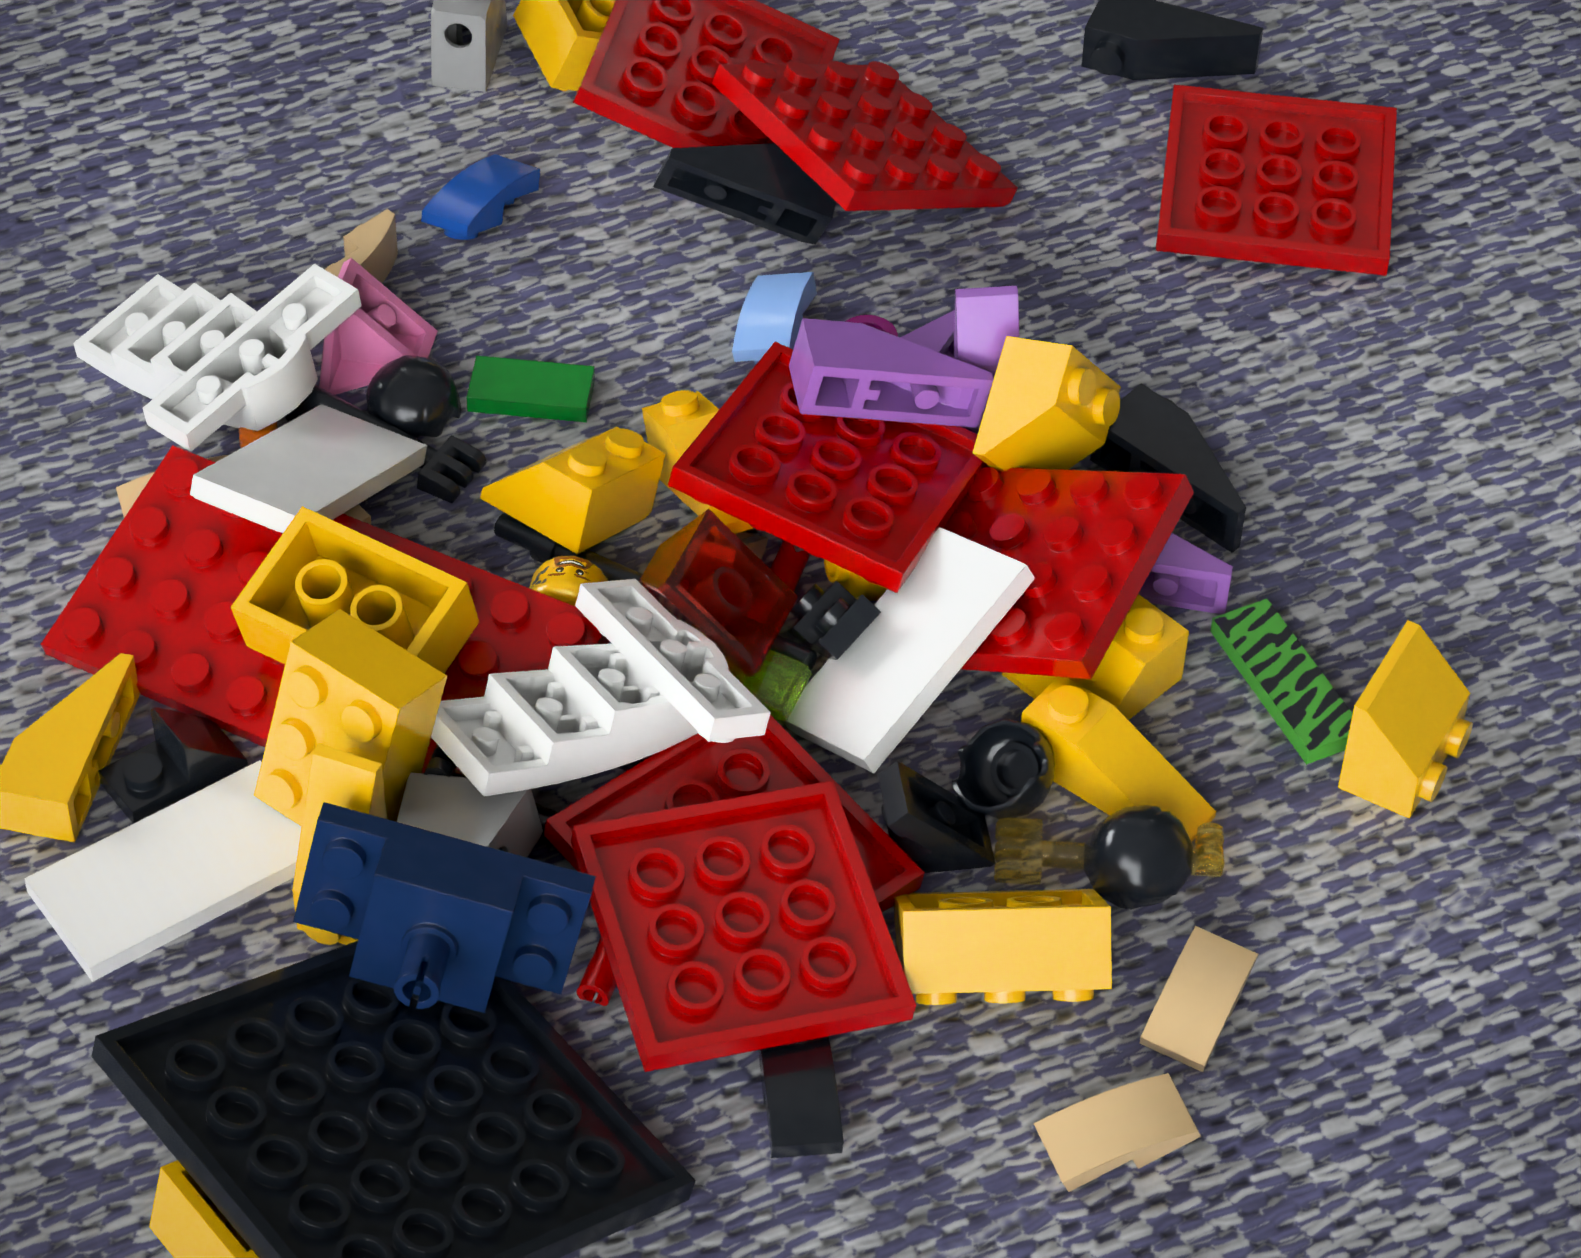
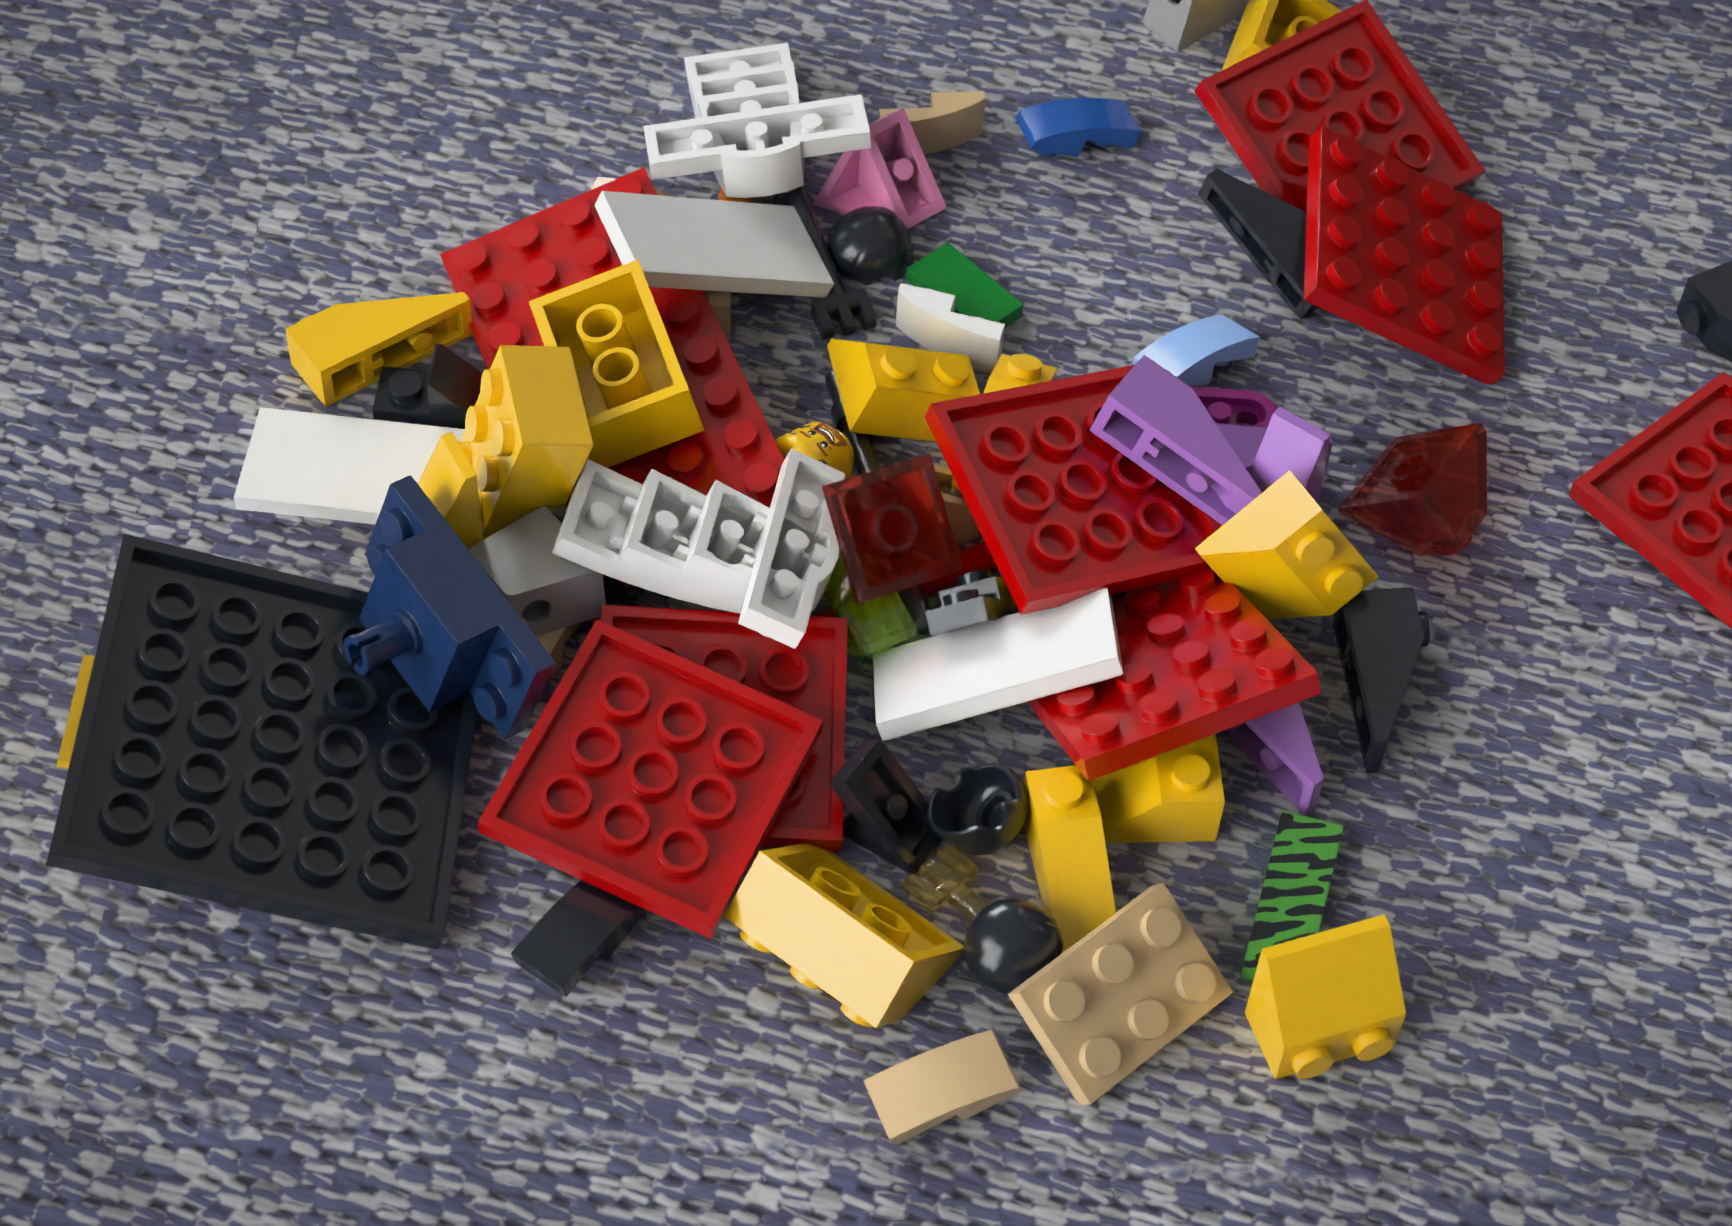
camera: 40 degrees right, 5 degrees up
(544, 426) = (931, 321): none -> white slope
(1070, 297) = (1425, 490): none -> clear red slope
(1115, 1127) = (772, 1132): tan slope -> none
(1255, 831) = (1120, 994): none -> tan plate

